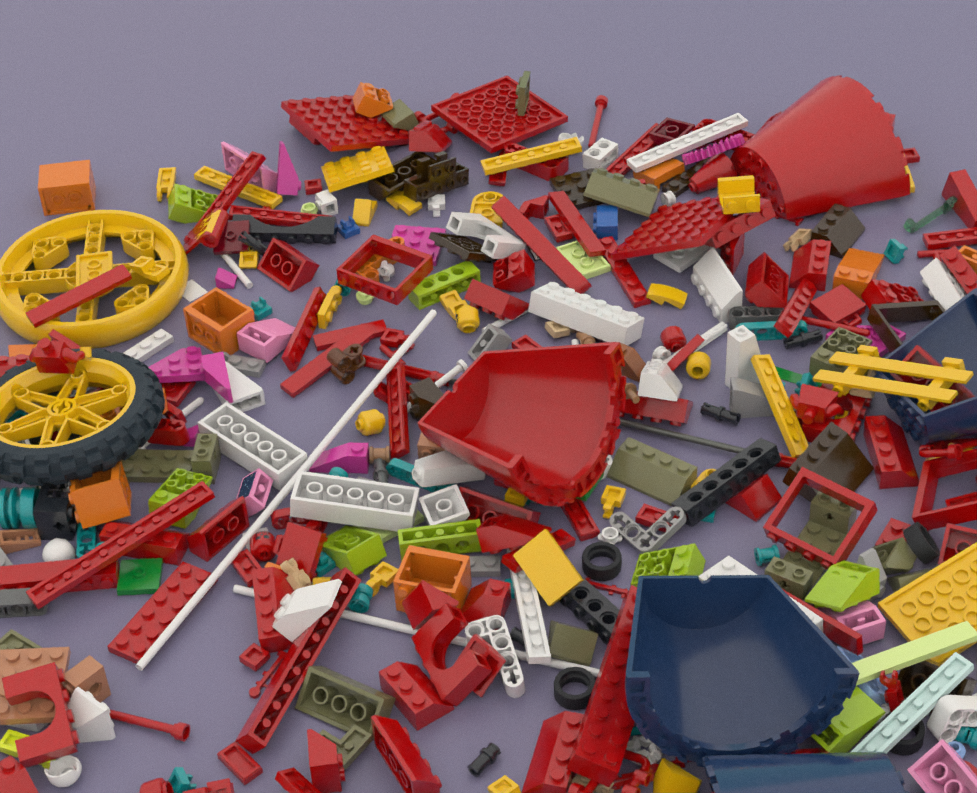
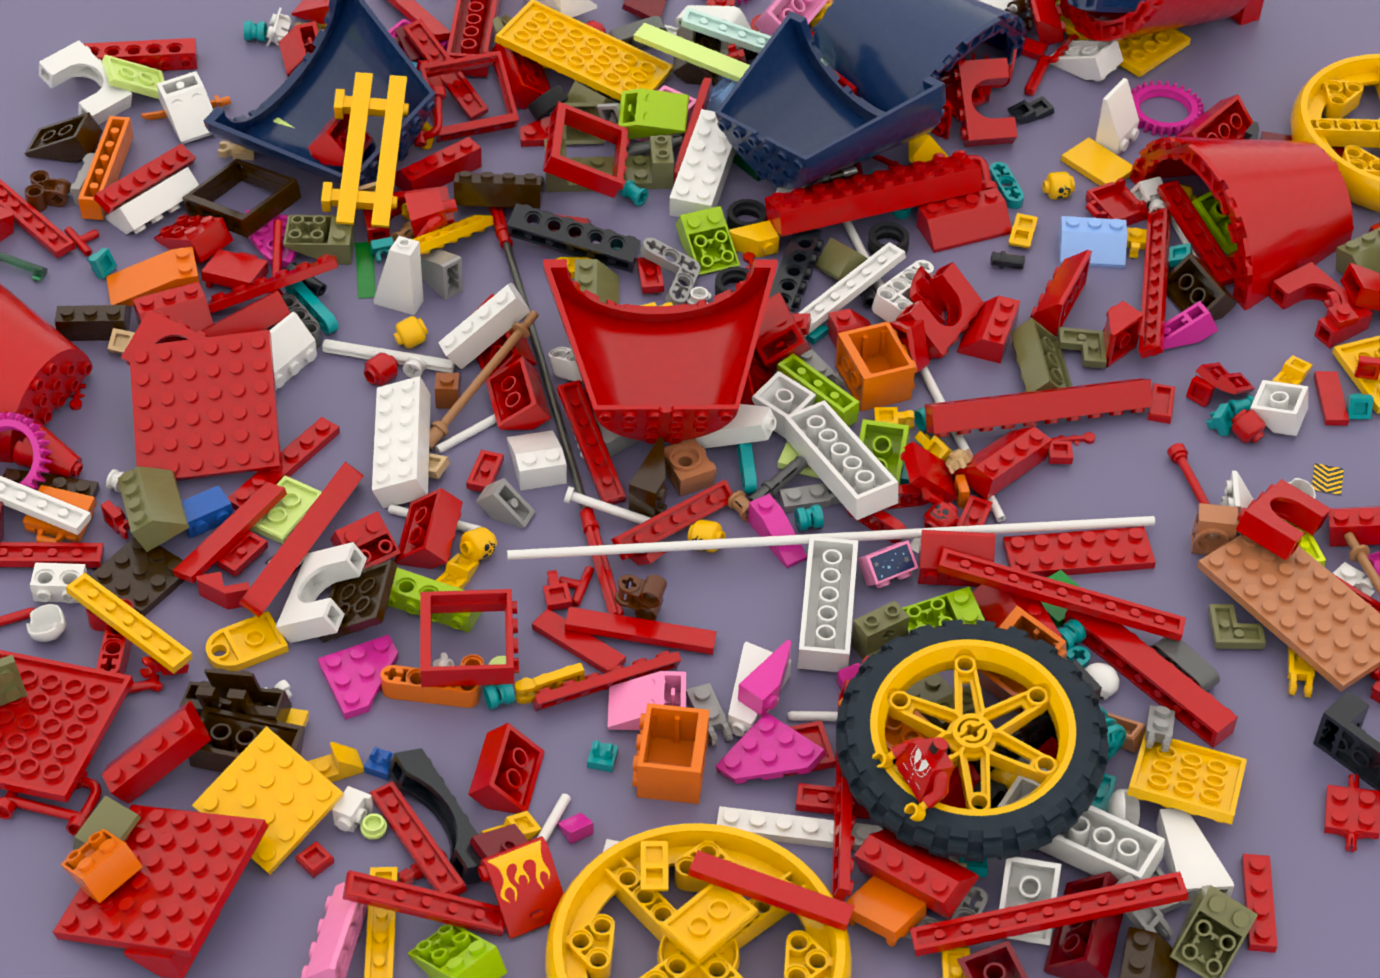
camera: 130 degrees left, 5 degrees up
(254, 243) = (501, 817): black pin -> none
(287, 179) = (336, 861): dark pink slope -> none
(304, 608) = (997, 406): white slope -> none
(548, 567) = (797, 285): yellow tile -> none
(660, 293) = (307, 405): yellow slope -> none
(685, 352) = (422, 350): red beam -> none
(720, 413) = (469, 292): black pin -> none
(738, 195) = (166, 333): yellow panel -> none

